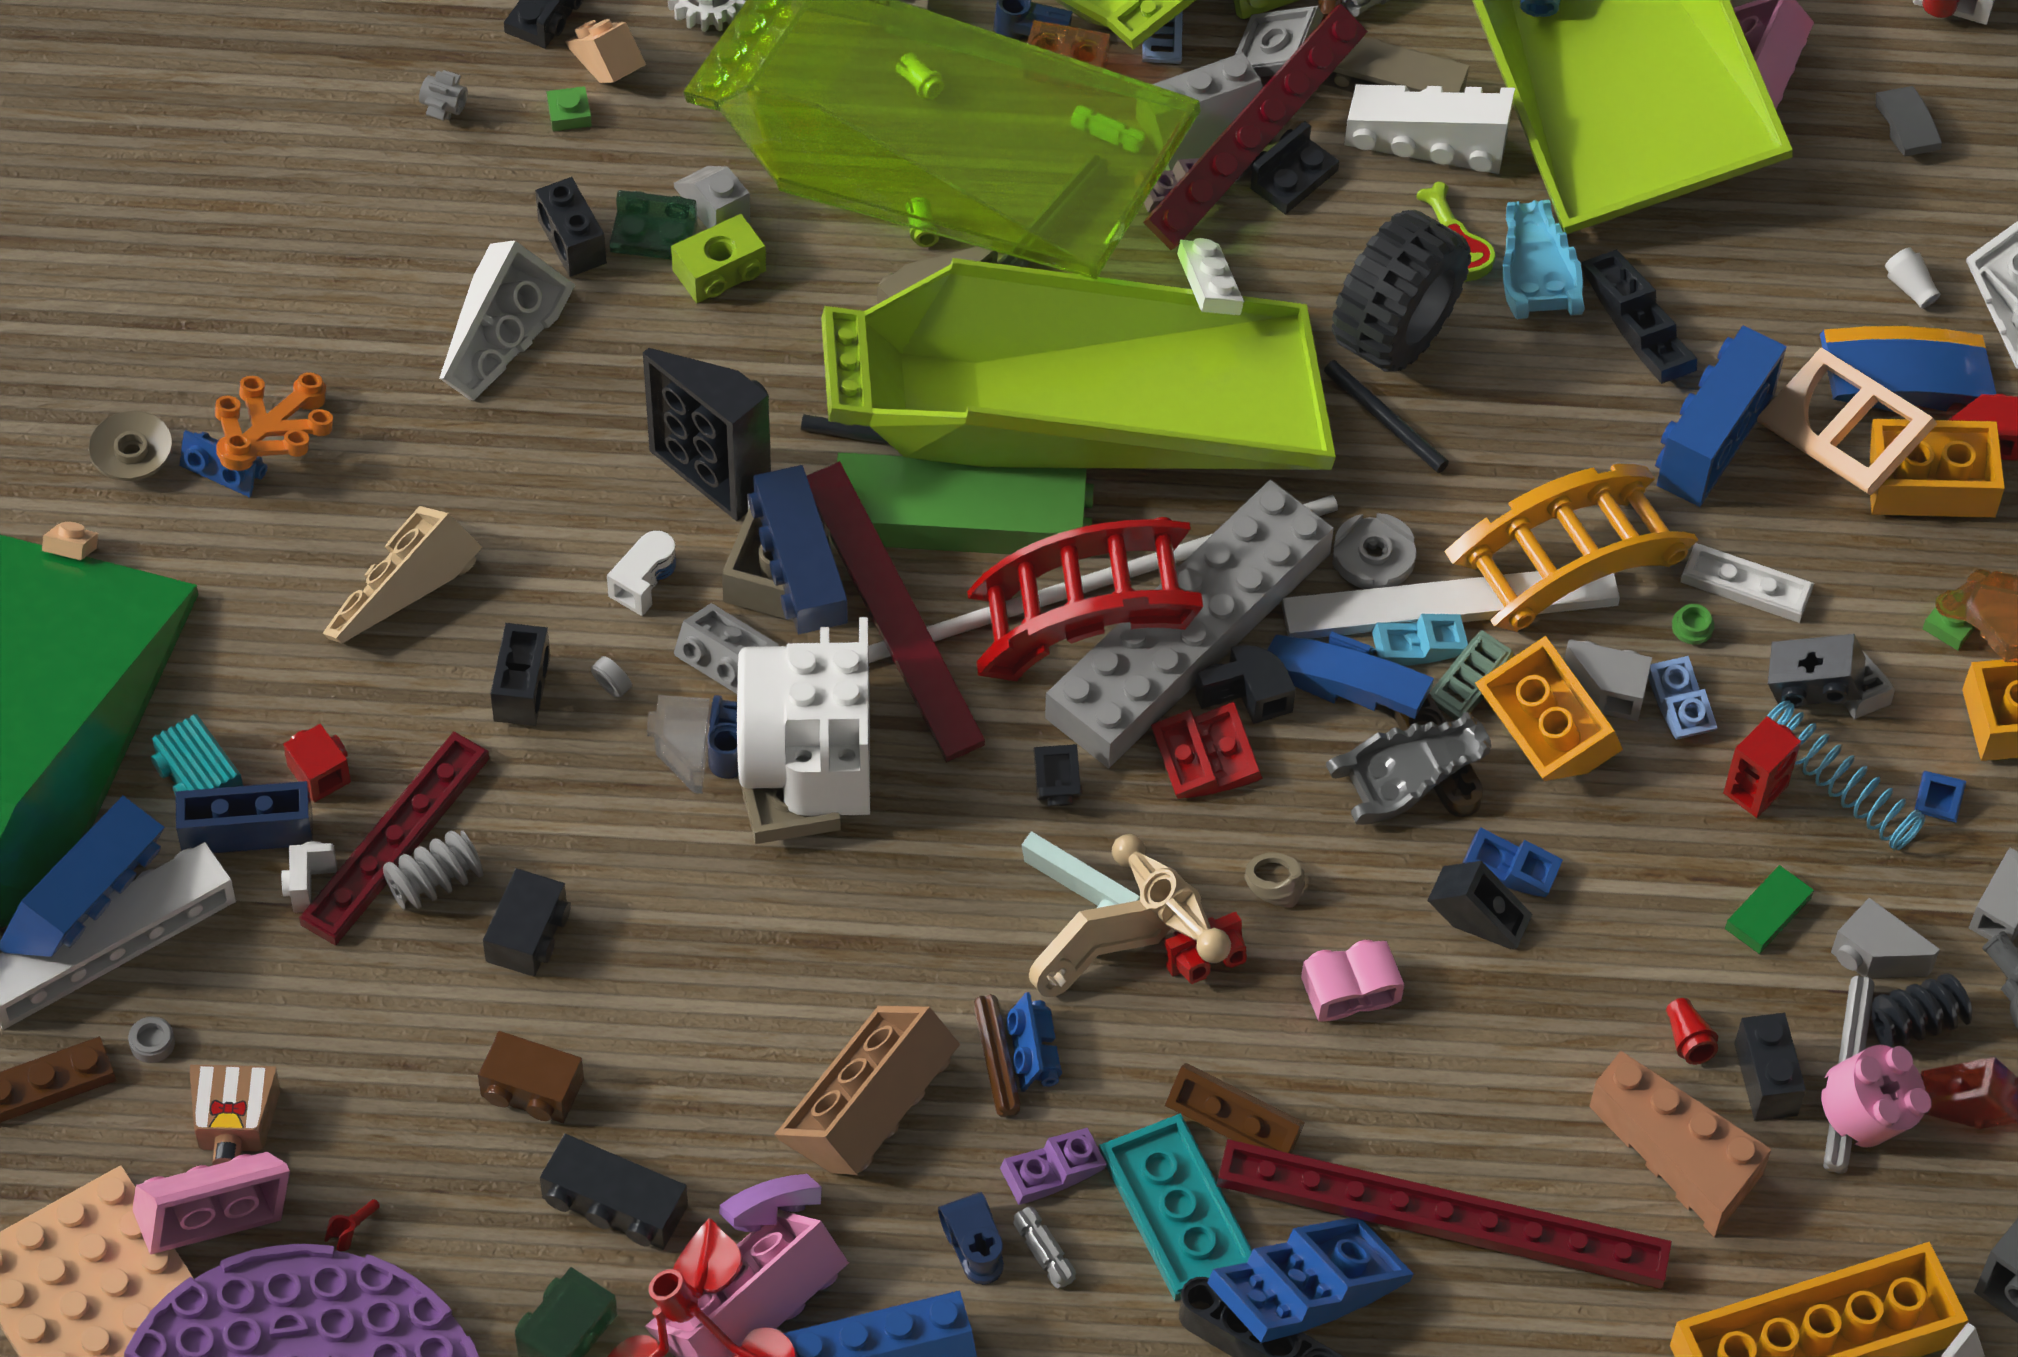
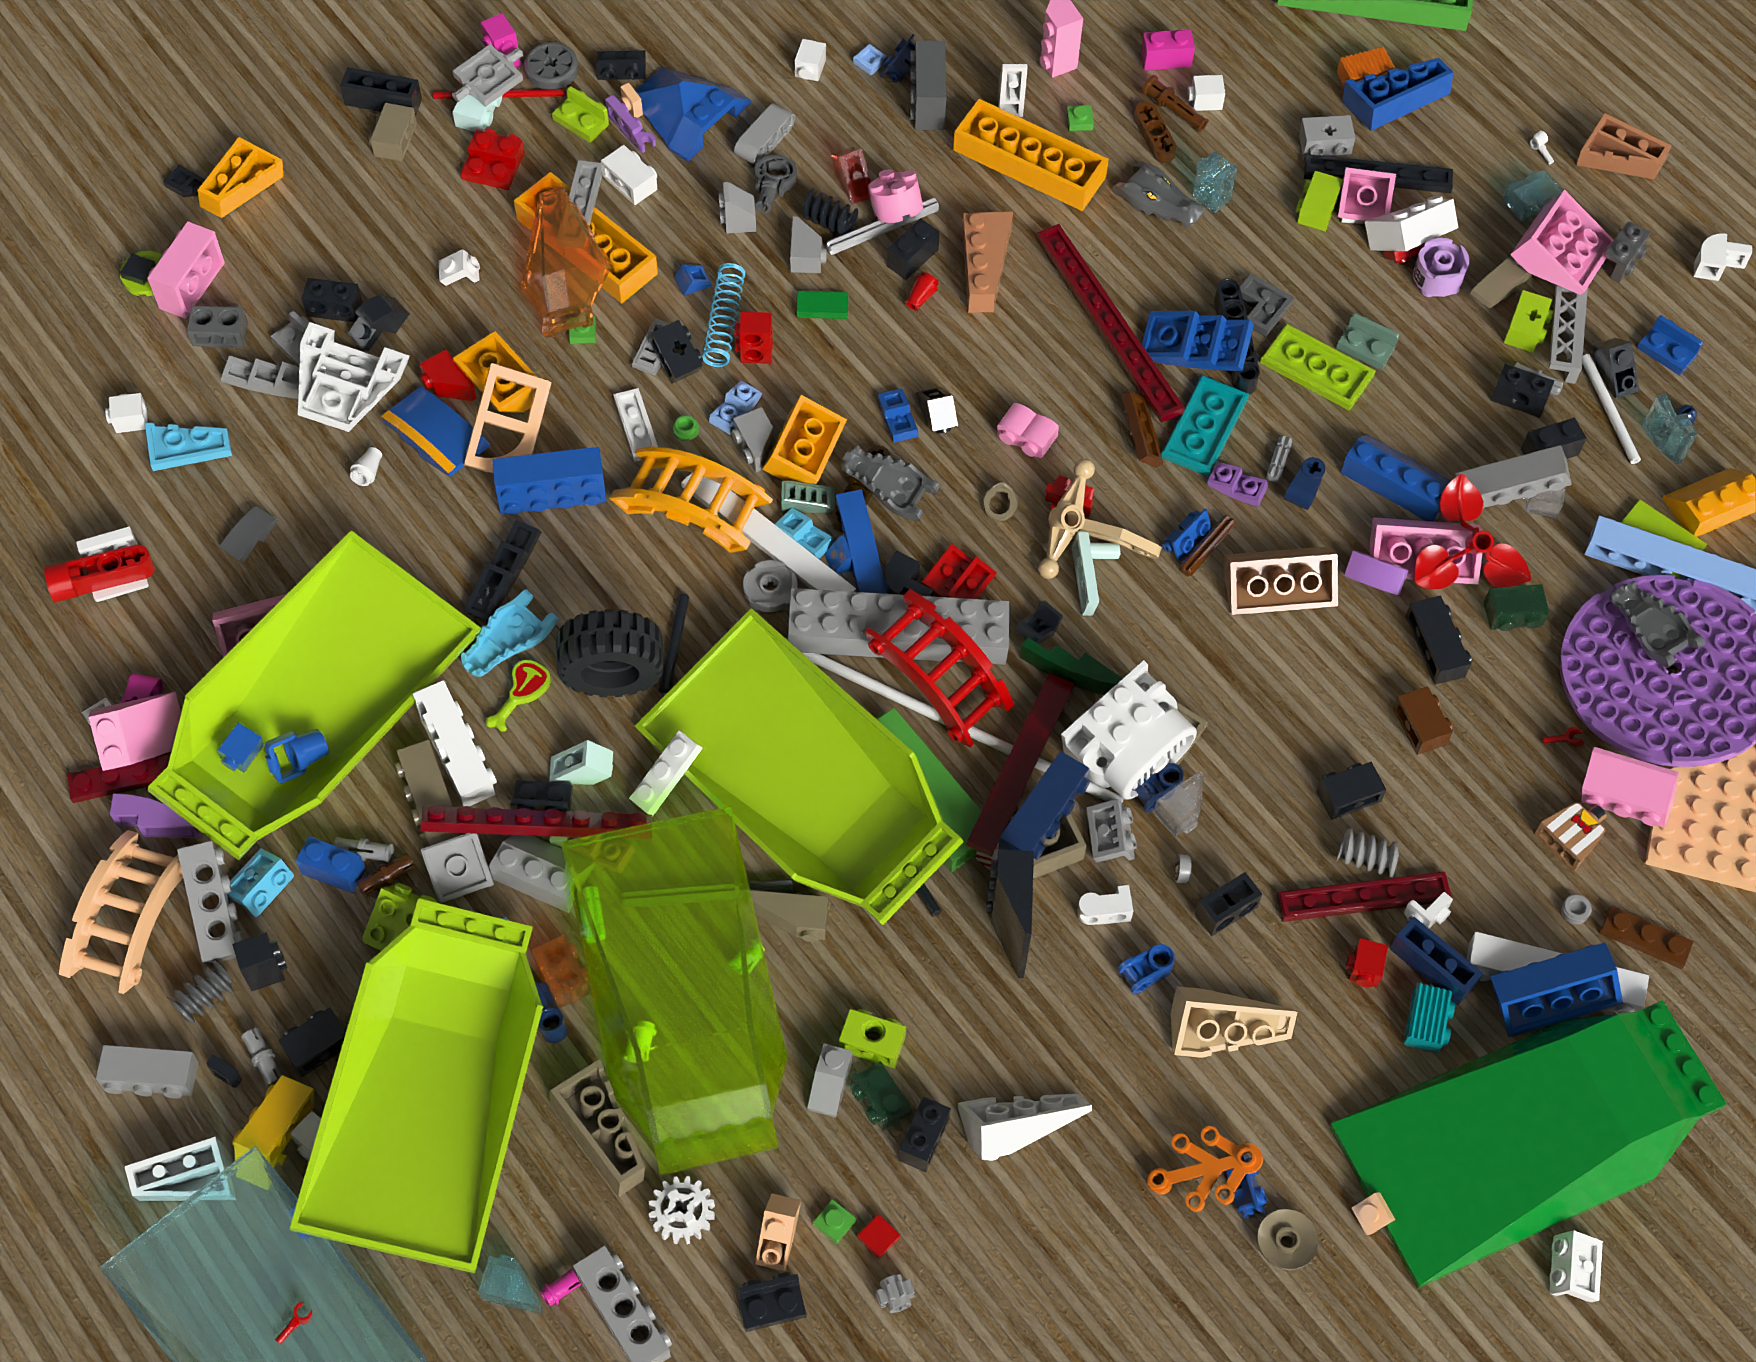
camera: 130 degrees left, 5 degrees up
(515, 131) = (878, 1236): none -> red tile
(534, 556) = (1143, 971): none -> blue piece
(947, 772) = (1085, 672): none -> dark green slope
(1297, 224) = (582, 764): none -> light aqua slope

